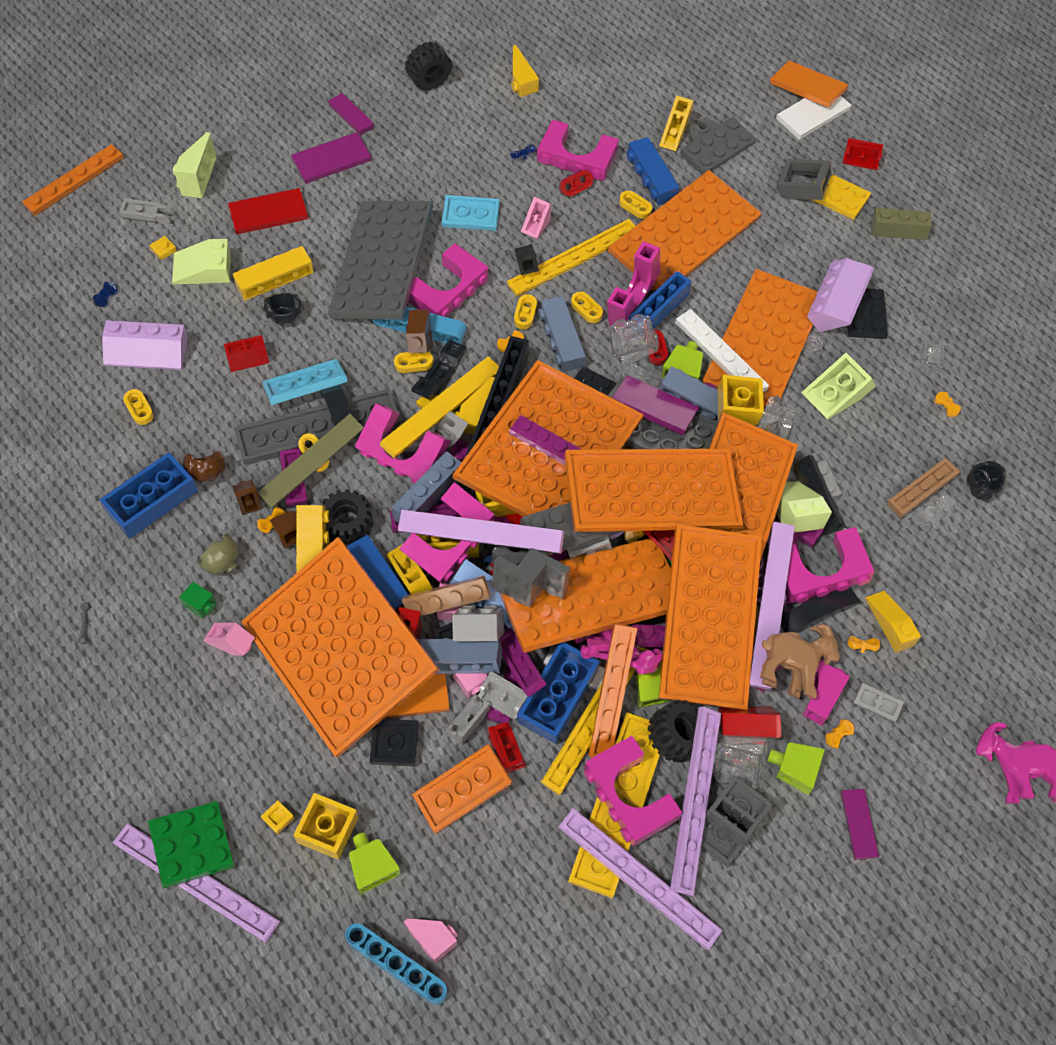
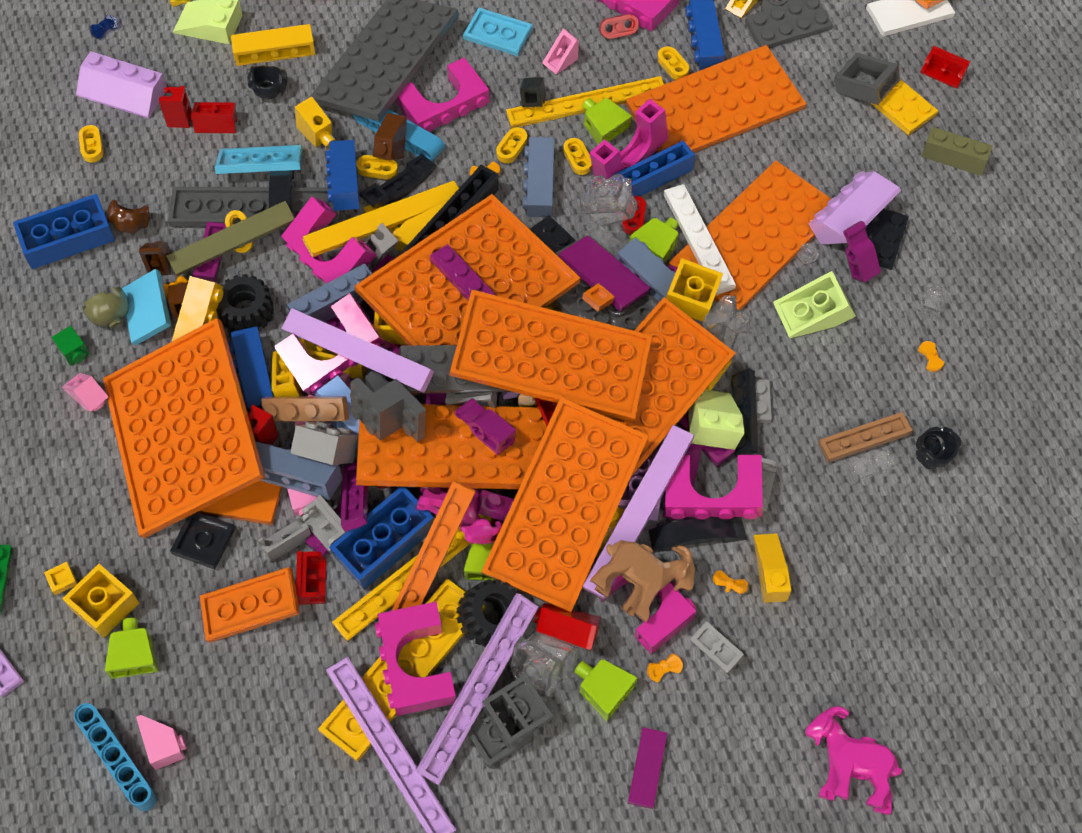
camera: 20 degrees right, 0 degrees up
(209, 353) = (176, 107): none -> red hinge
(257, 545) = (147, 307): none -> medium azure tile
(343, 336) = (313, 123): none -> yellow torso
(389, 376) = (342, 175): none -> blue brick
(598, 269) = (605, 119): none -> lime torso
(617, 567) = (487, 426): none -> magenta piece
(661, 427) = (598, 297): none -> orange plate
(862, 332) = (861, 253): none -> magenta piece

